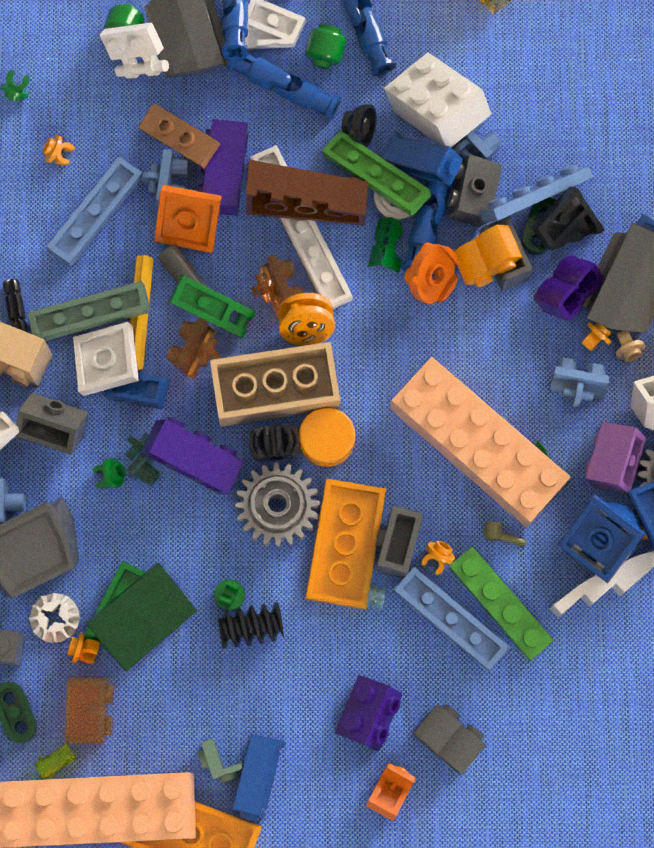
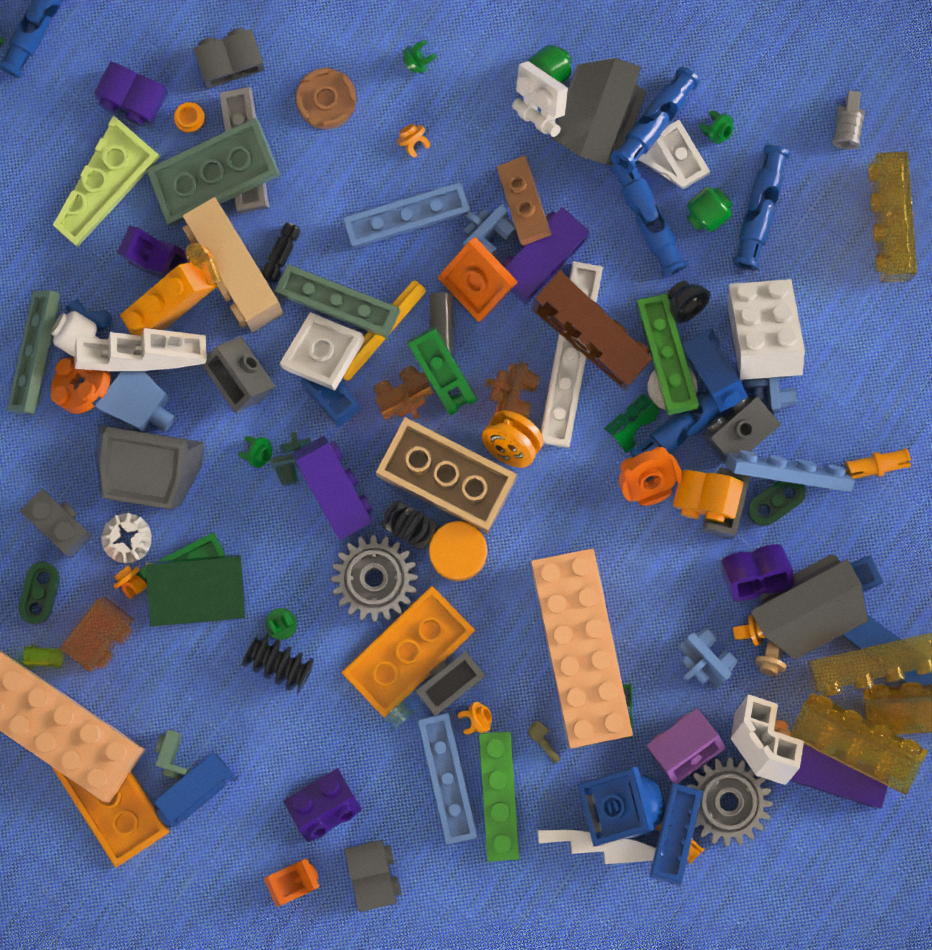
camera: 40 degrees right, 5 degrees up
(566, 221) = (798, 514): black wing -> none
(595, 144) = (878, 464): none -> light orange pin

